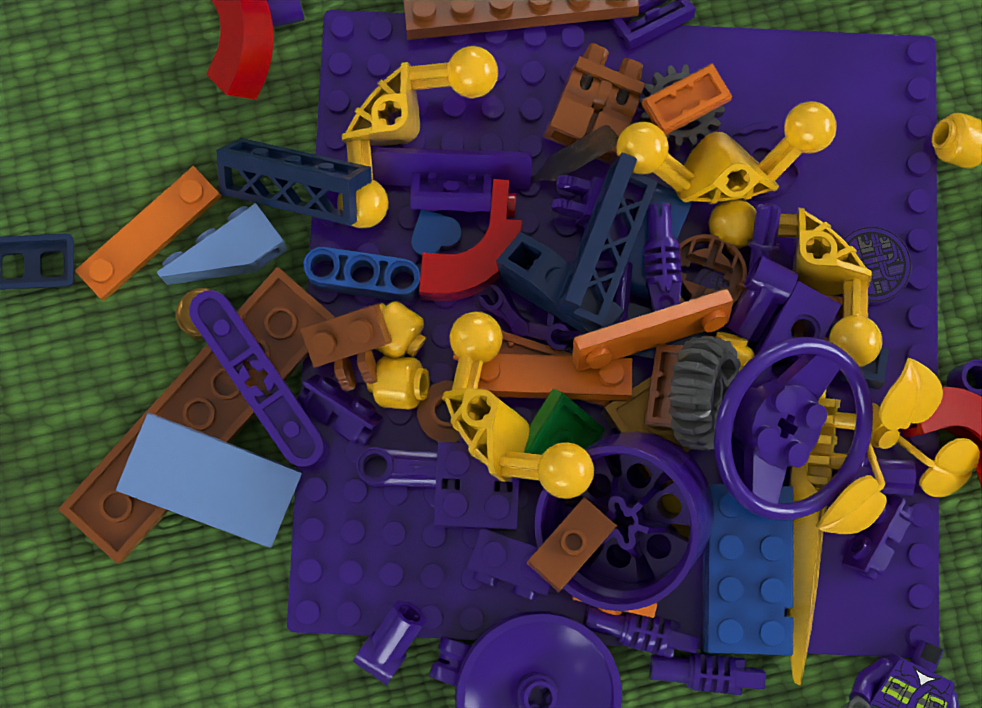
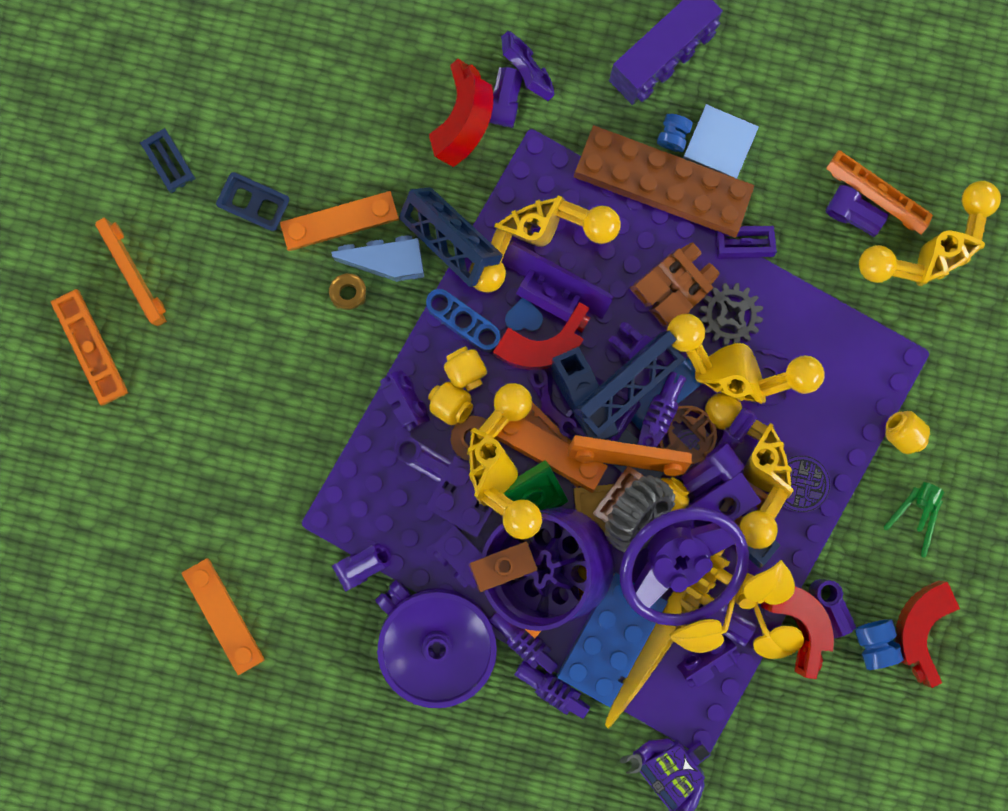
camera: 30 degrees right, 5 degrees up
(199, 399) = (313, 358): dark orange plate -> none
(208, 480) = (298, 404): medium blue tile -> none
(234, 345) = (357, 325): dark purple piece -> none
(346, 336) = (433, 358): dark orange hinge -> none
(577, 154) = (643, 313): clear smoke piece -> none
(687, 99) = (734, 314): orange plate -> none

